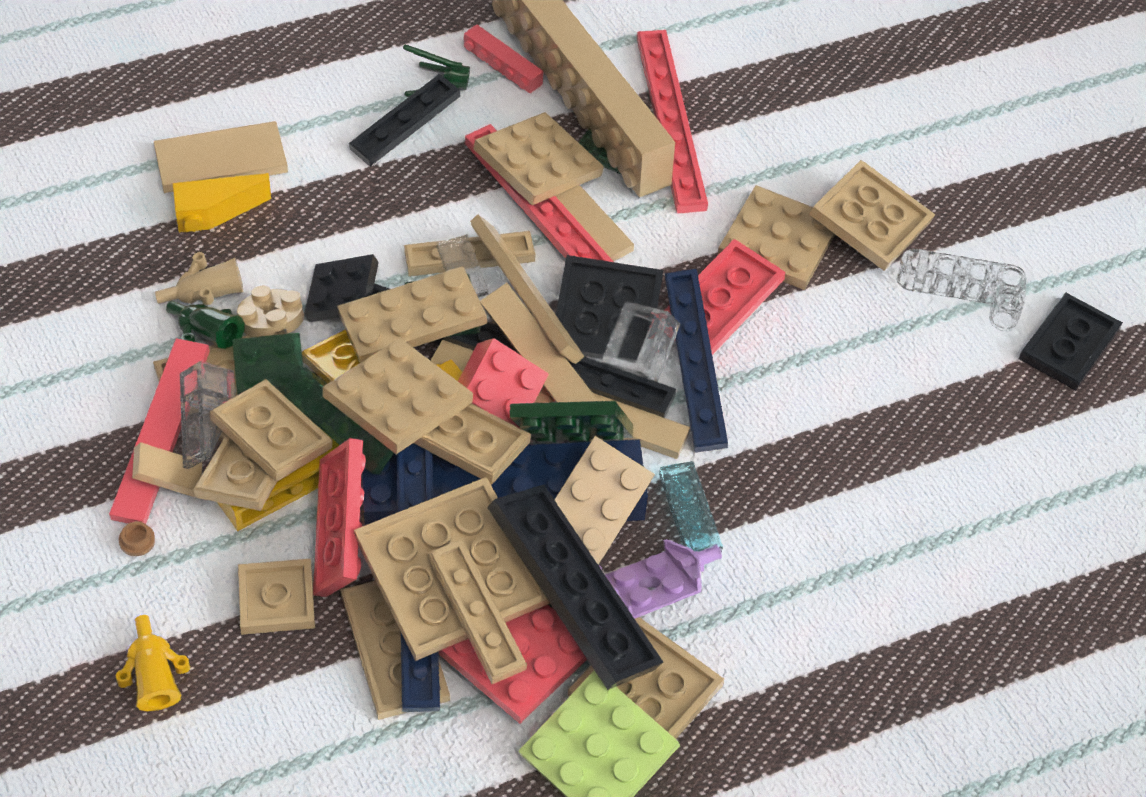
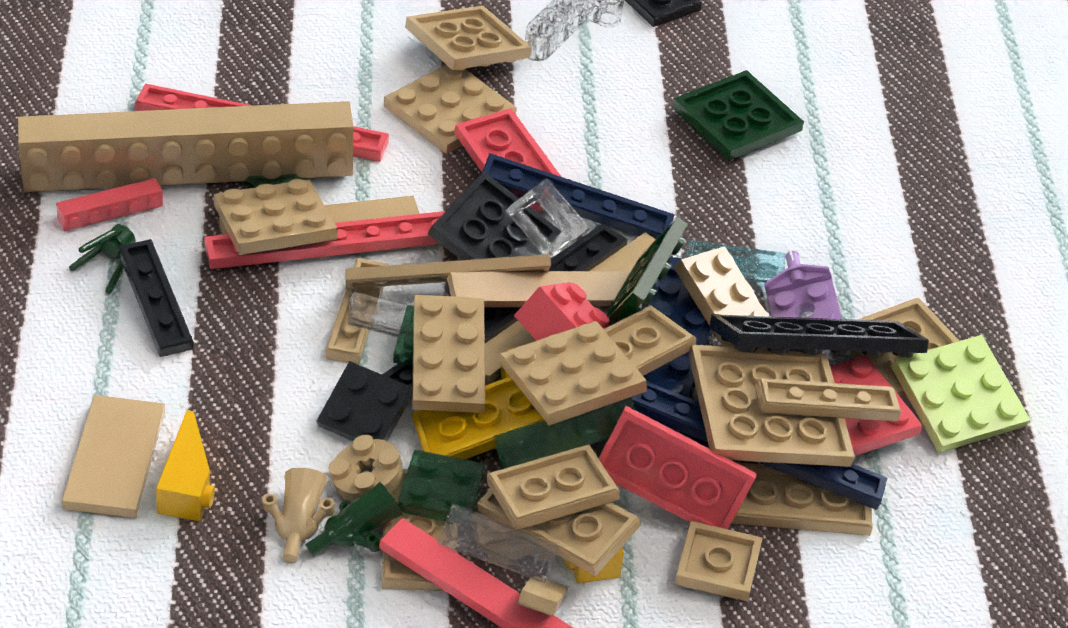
camera: 70 degrees left, 10 degrees down
(917, 458) = (738, 114): none -> dark green plate

